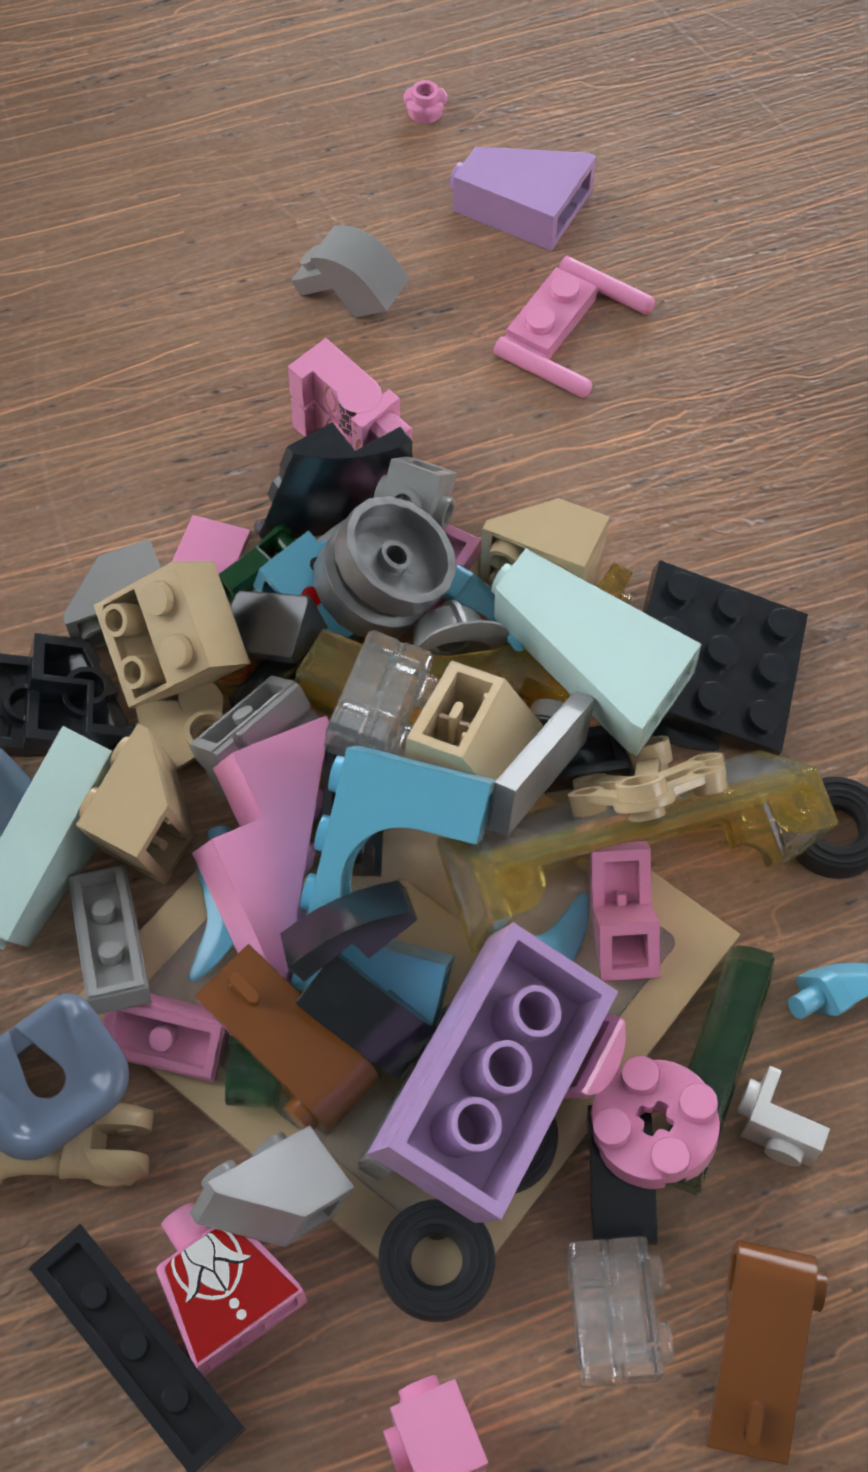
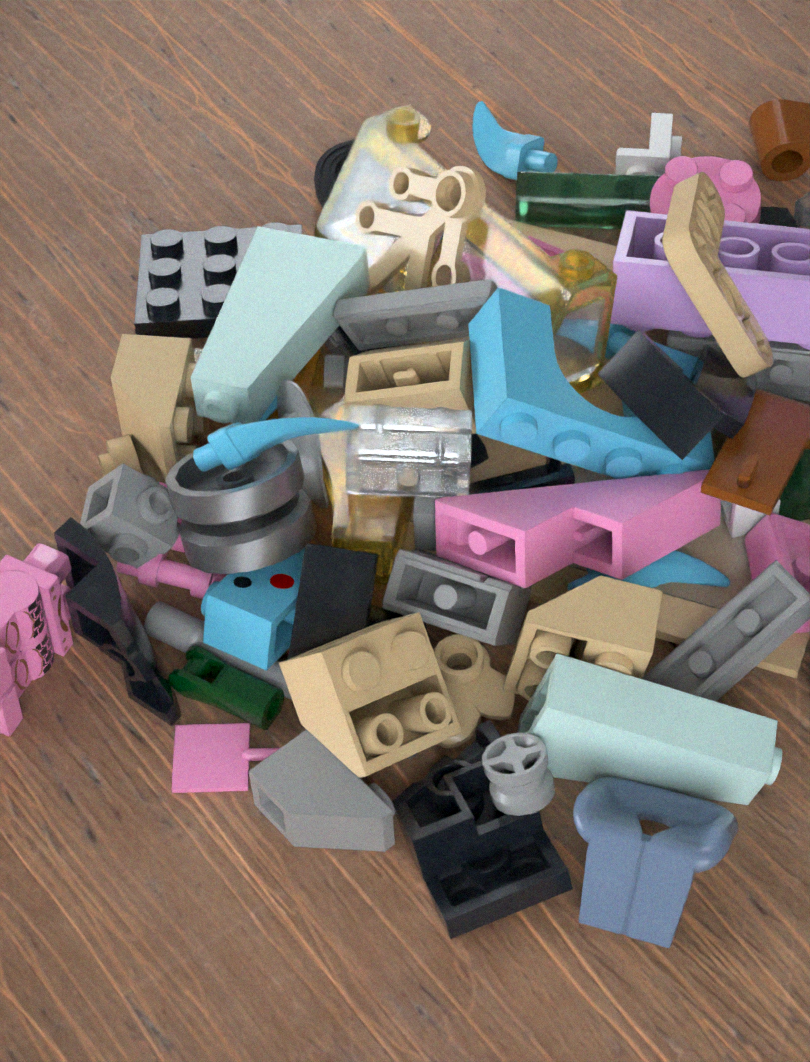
camera: 105 degrees left, 10 degrees down
(55, 709) = (518, 774): none -> light grey wheel
(415, 554) = (243, 442): none -> medium azure bar
(478, 995) = (692, 249): none -> tan beam

